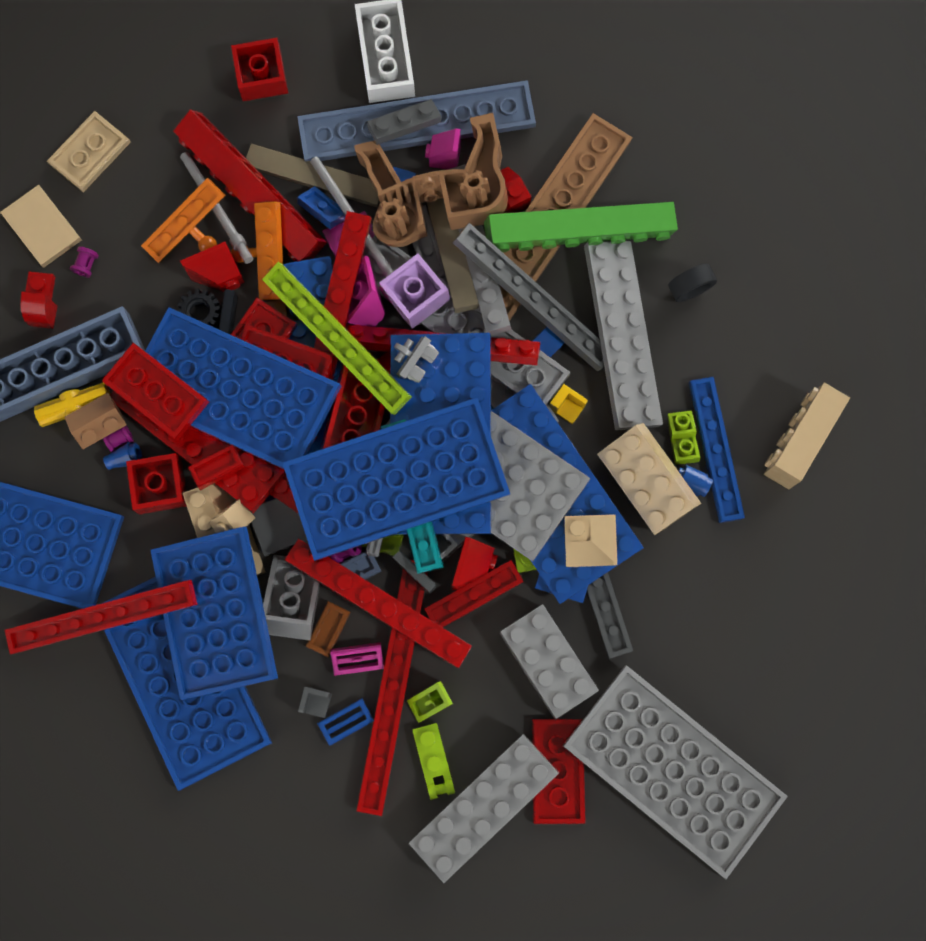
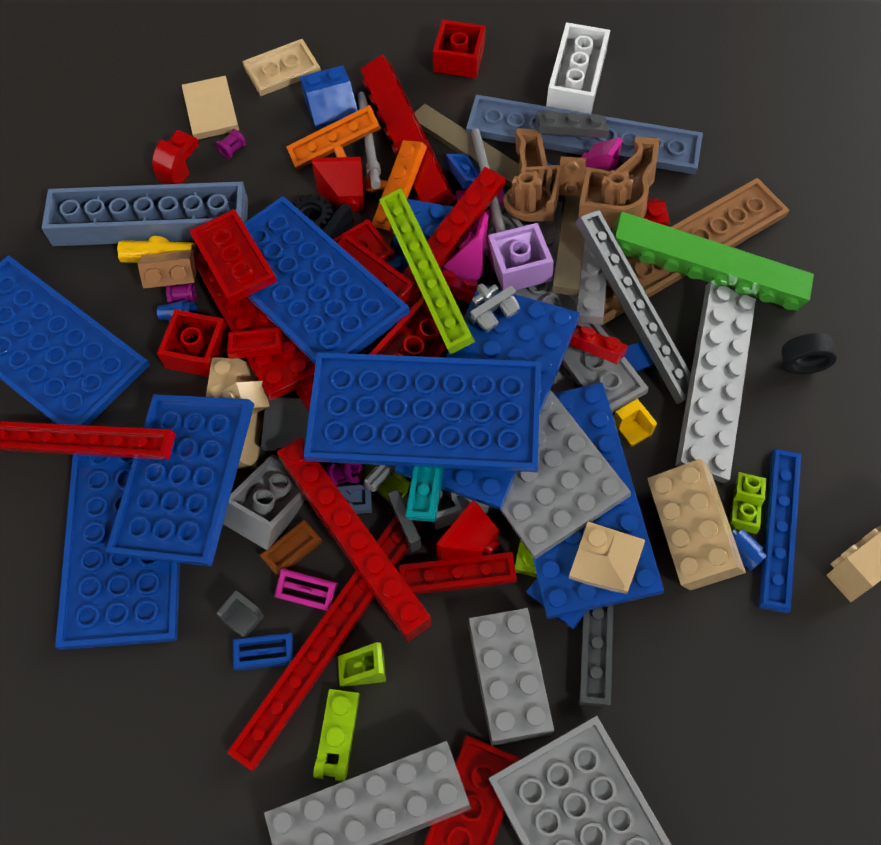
camera: 25 degrees right, 15 degrees down
(155, 172) = (328, 95): none -> blue slope

